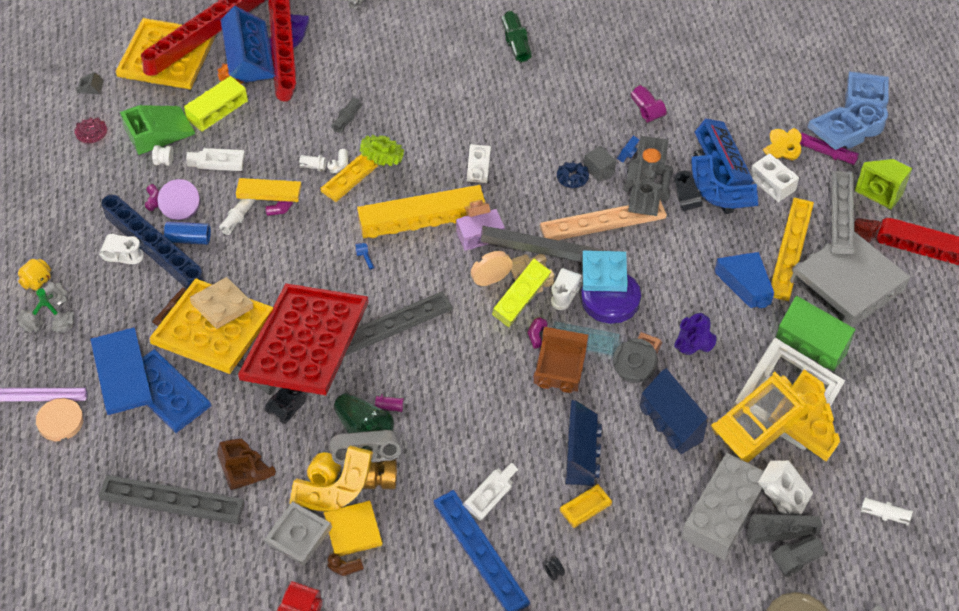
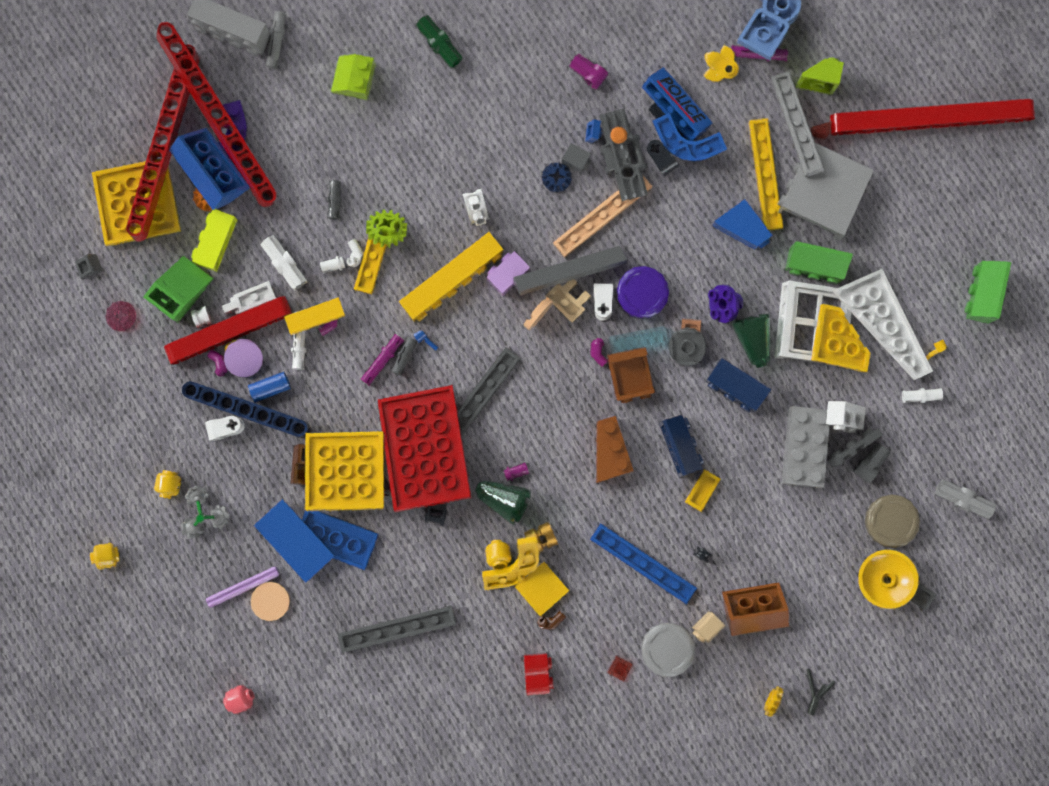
camera: 25 degrees left, 30 degrees up
(201, 174) = (227, 330): none -> red beam
(221, 302) = (341, 449): tan plate -> none
(237, 459) = (426, 571): reddish brown slope -> none
(267, 143) = (283, 262): none -> white piece
(298, 533) = (506, 613): light grey plate -> none
(321, 249) = (382, 359): none -> magenta pin
(335, 259) = (404, 356): none -> dark grey pin
(375, 440) = (525, 526): light grey beam -> none
(424, 34) = (353, 76): none -> lime slope
(477, 208) = (500, 261): nougat plate -> none
(490, 492) = (629, 512): white hinge -> none
(500, 423) = (611, 452): none -> dark orange wedge
(521, 293) = (574, 328): neon yellow brick -> none
(604, 271) = (631, 276): medium azure plate -> none
(713, 376) = (754, 338): none -> clear green cone
(761, 417) = (807, 366): yellow door -> none
(774, 177) = (724, 112): white brick -> none
(868, 408) = (879, 311): none -> white wing
(926, 473) = (940, 346): none -> yellow hand

